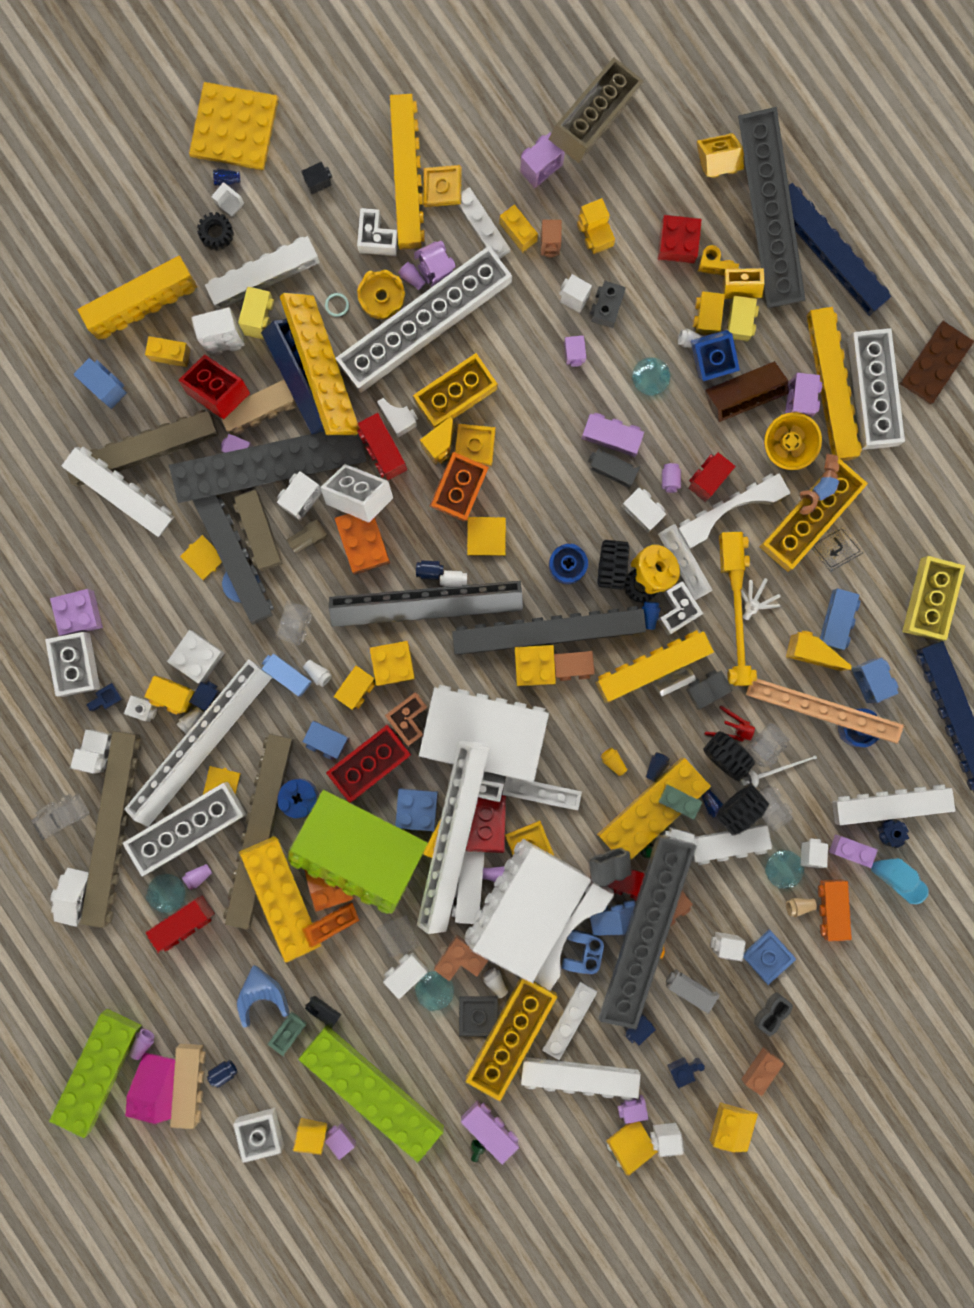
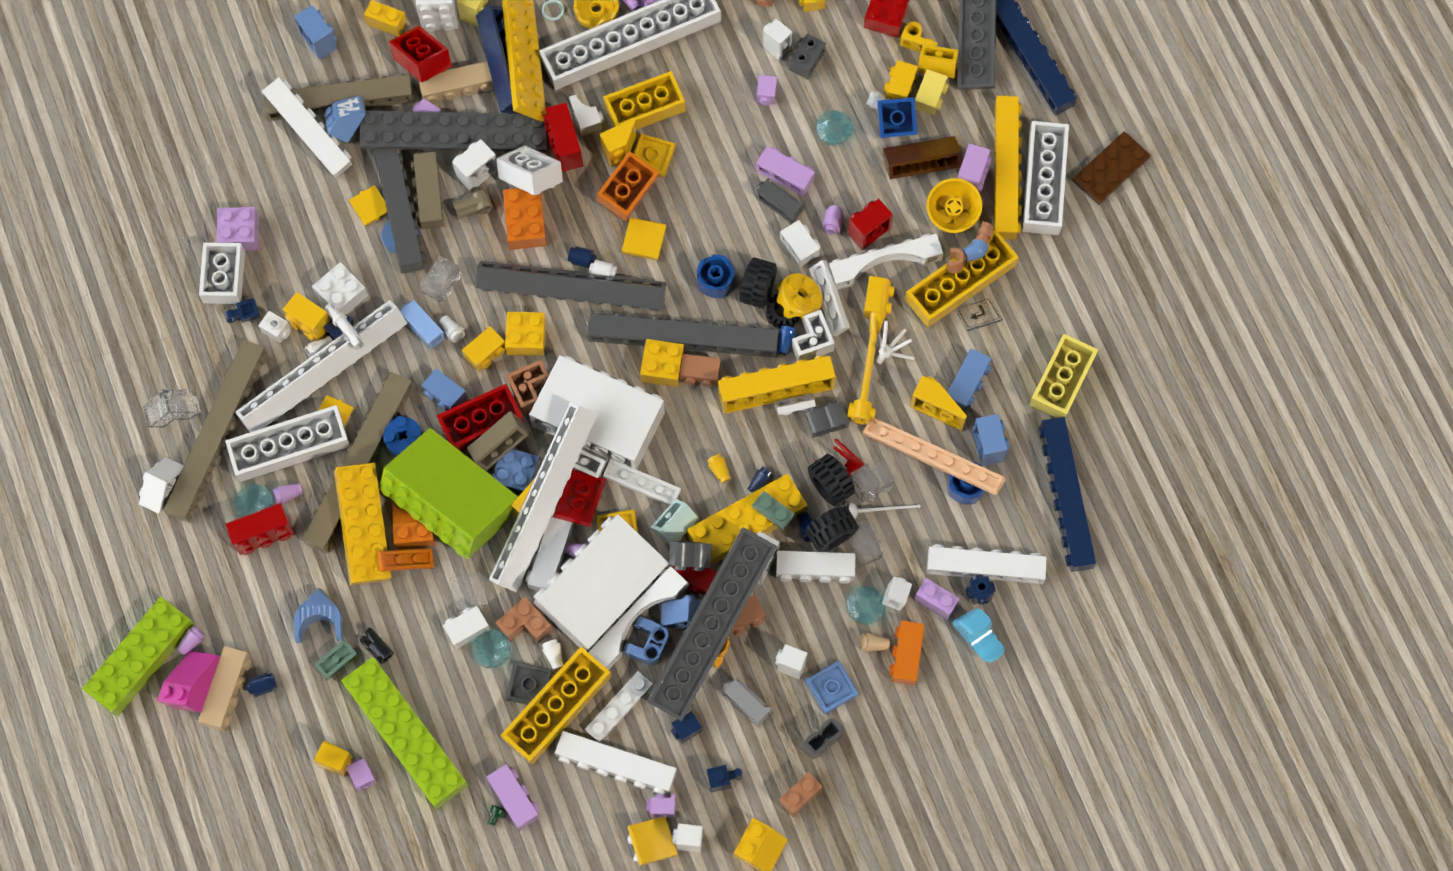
camera: 15 degrees right, 15 degrees down
(93, 752) = (218, 356): white brick -> none
(154, 473) = (345, 117): none -> medium blue slope
(204, 694) = (340, 320): none -> white pin
(258, 1135) = (282, 748): white brick -> none
(393, 787) = (498, 441): none -> dark tan brick
(584, 829) = (674, 522): none -> light aqua brick

